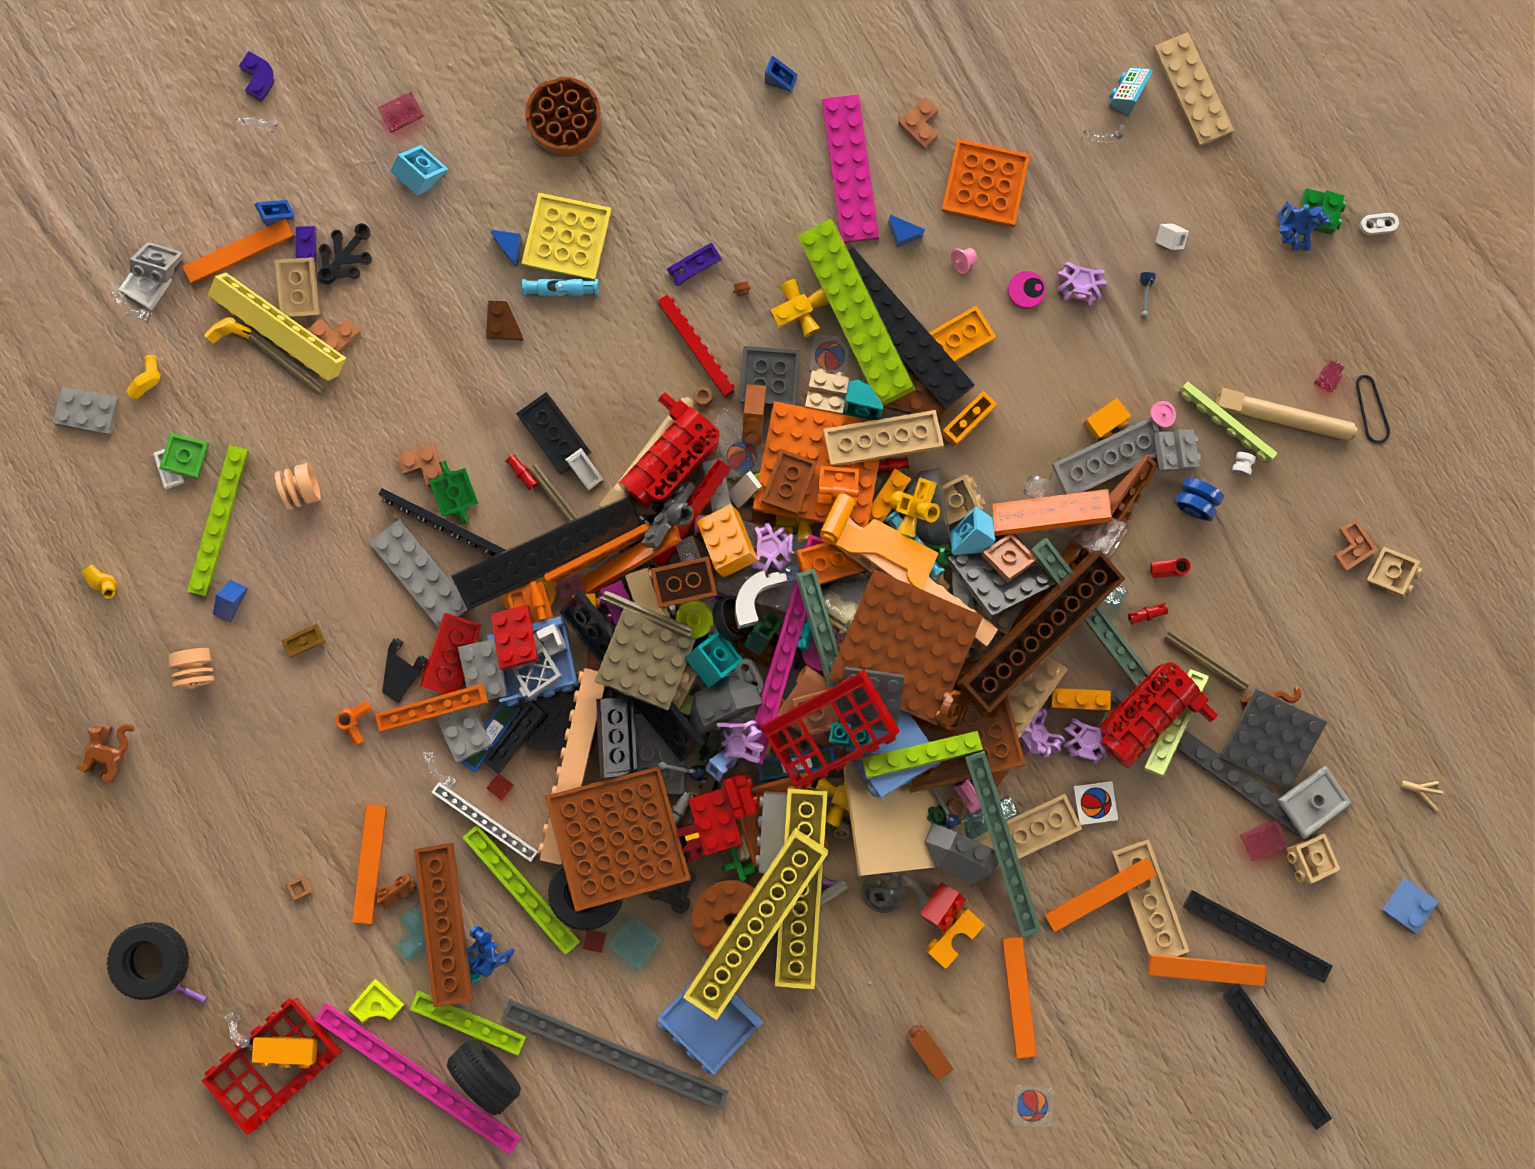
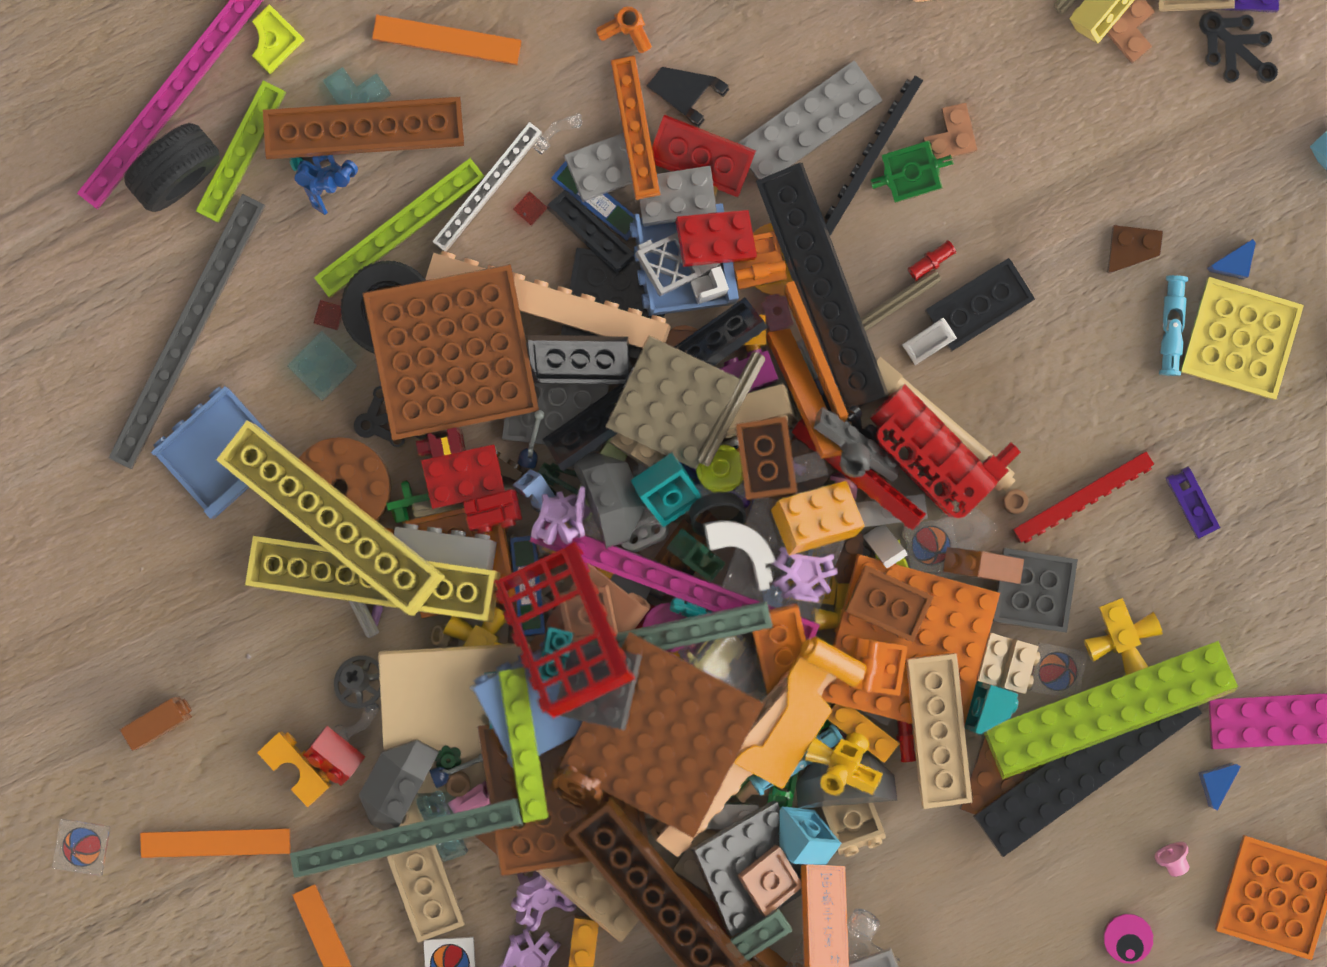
camera: 95 degrees right, 5 degrees up
(401, 886) = (405, 61): dark orange hinge -> none
(680, 808) = (484, 433): light grey pin -> none
(741, 288) = (1155, 562): dark orange plate -> none
(964, 334) = (1073, 849): light orange plate -> none
(969, 419) = (958, 845): light orange brick -> none

